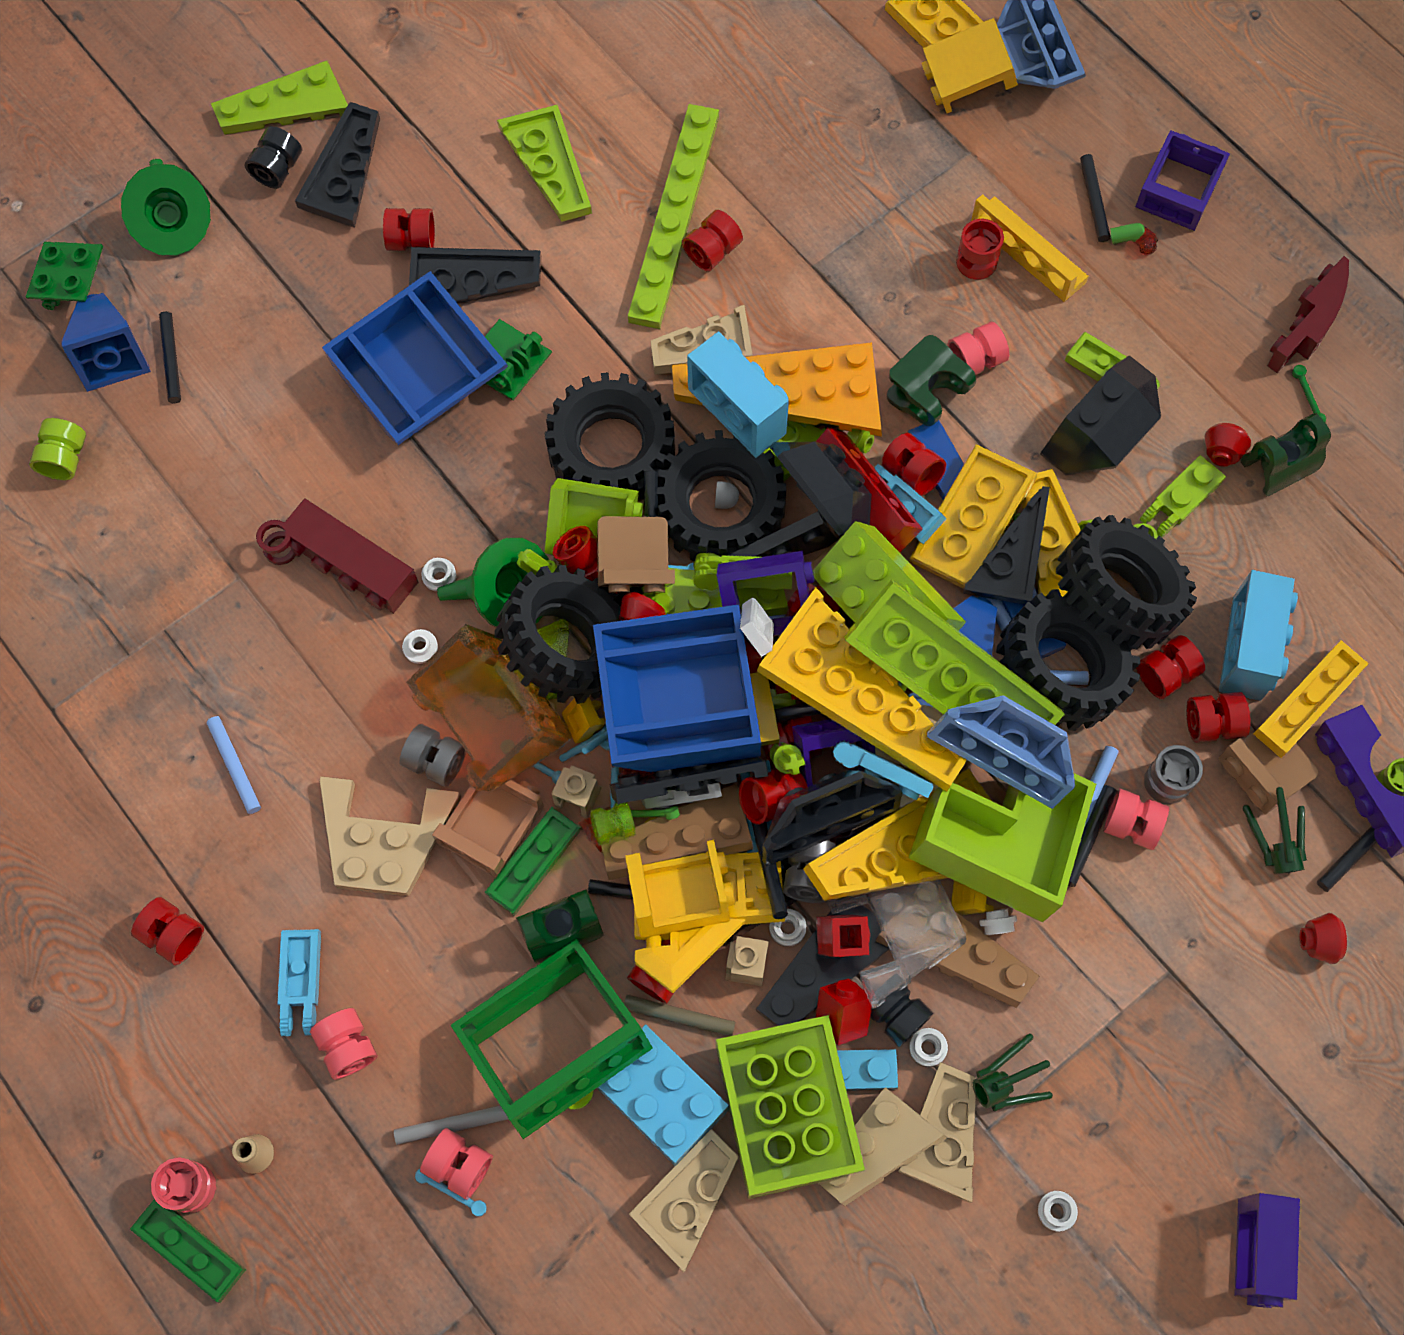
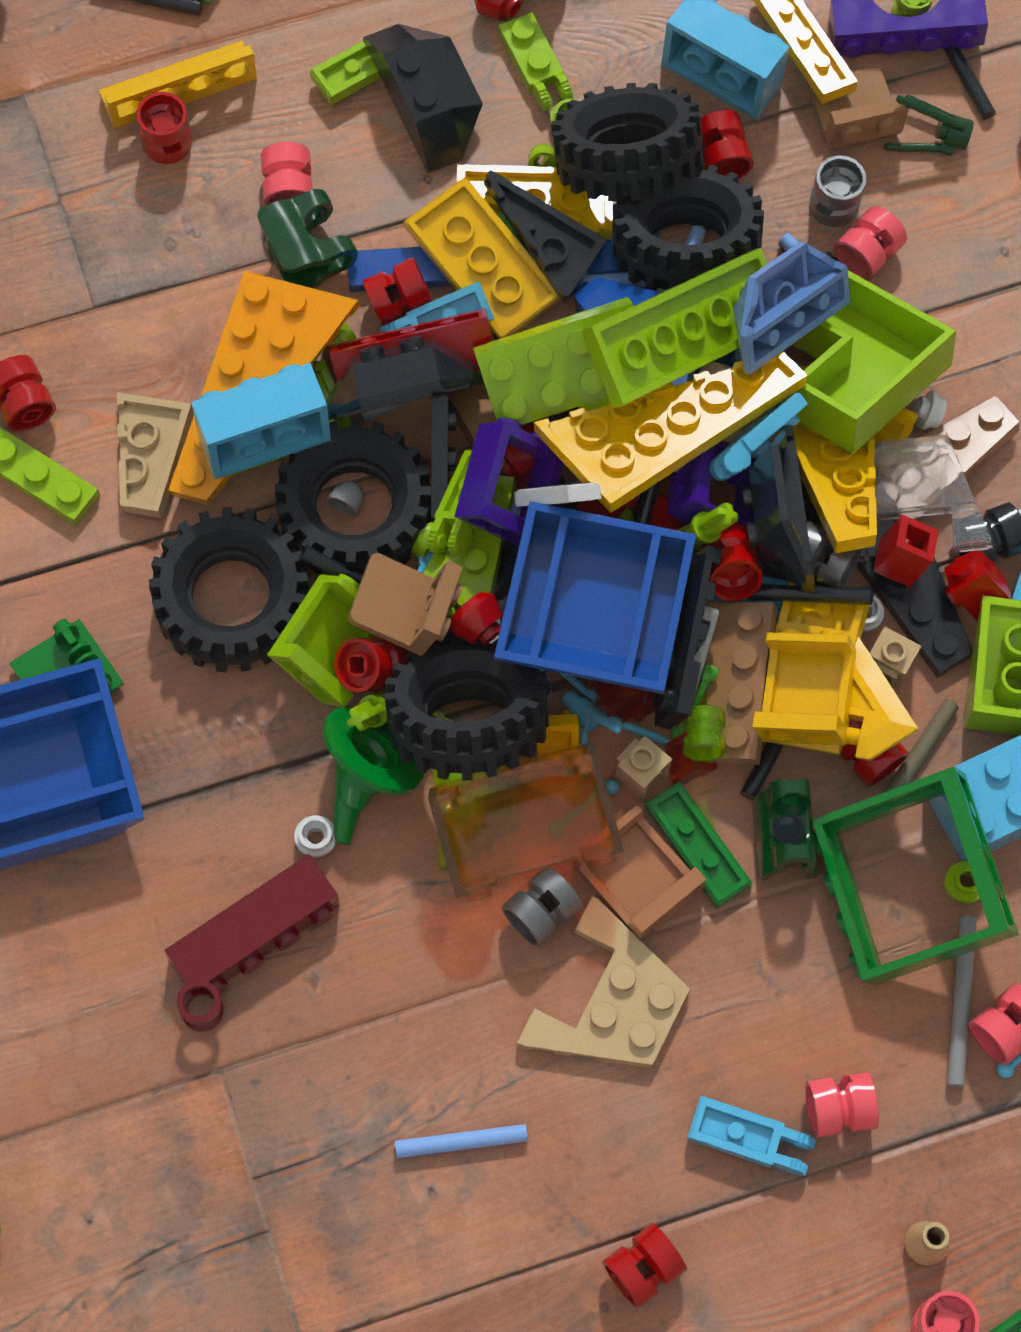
camera: 75 degrees left, 0 degrees up
(423, 655) = (402, 896): white plate -> none
(1224, 716) = (791, 127): red wheel -> none

